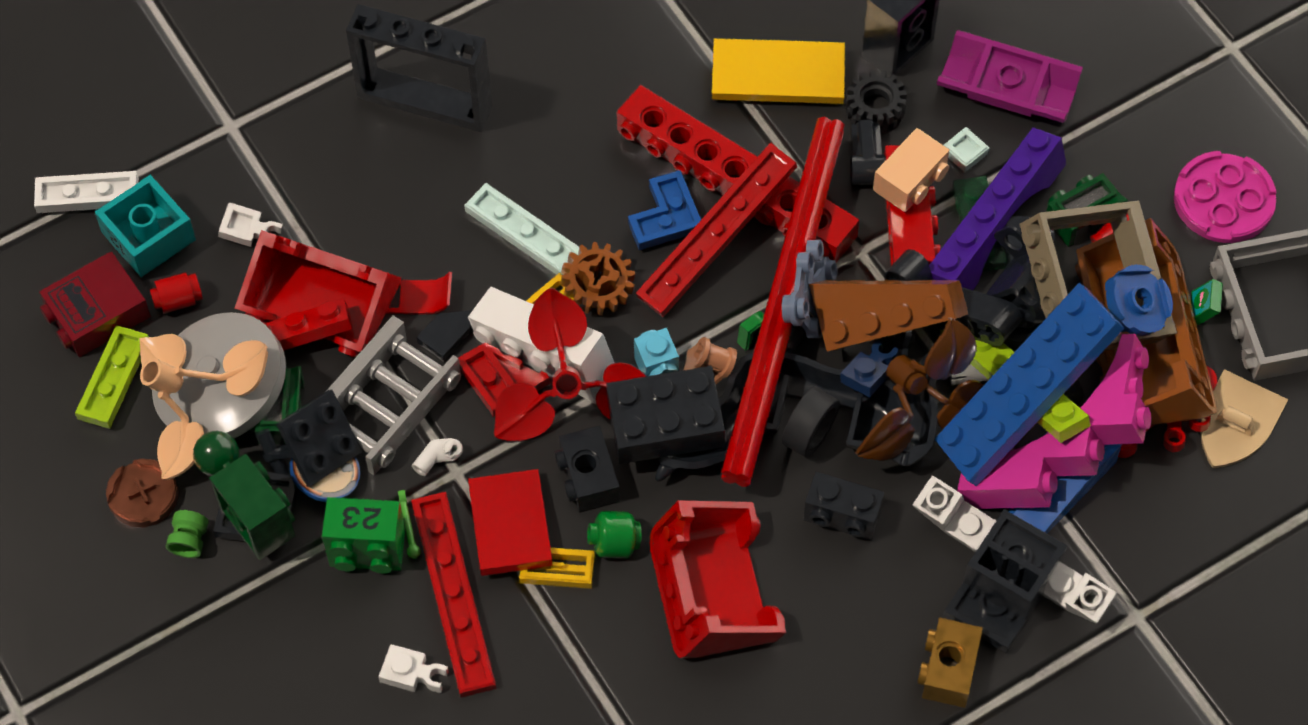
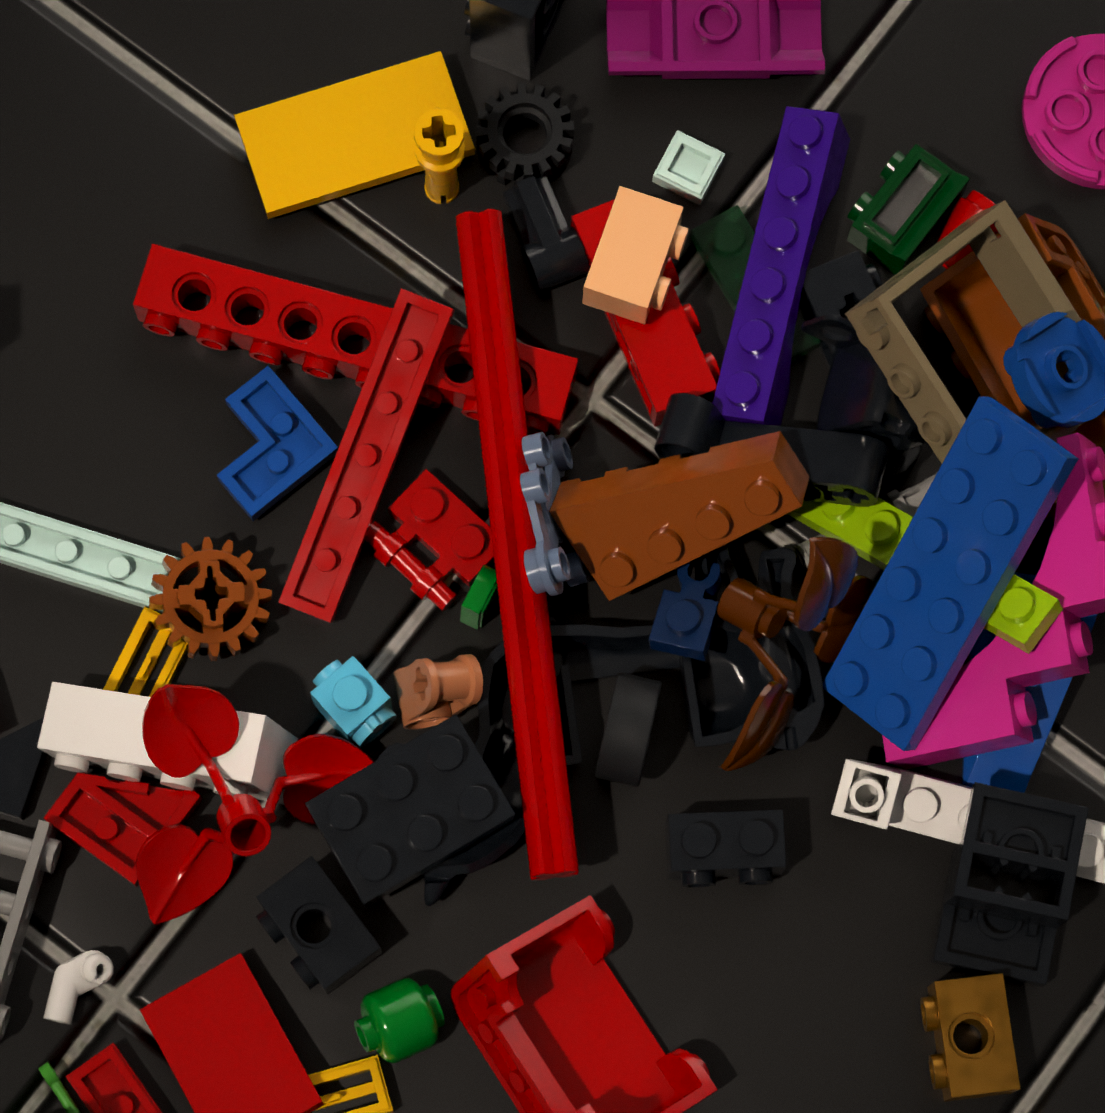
camera: 25 degrees left, 15 degrees up
(746, 287) = (445, 528): none -> red plate
(820, 80) = (439, 152): none -> yellow pin

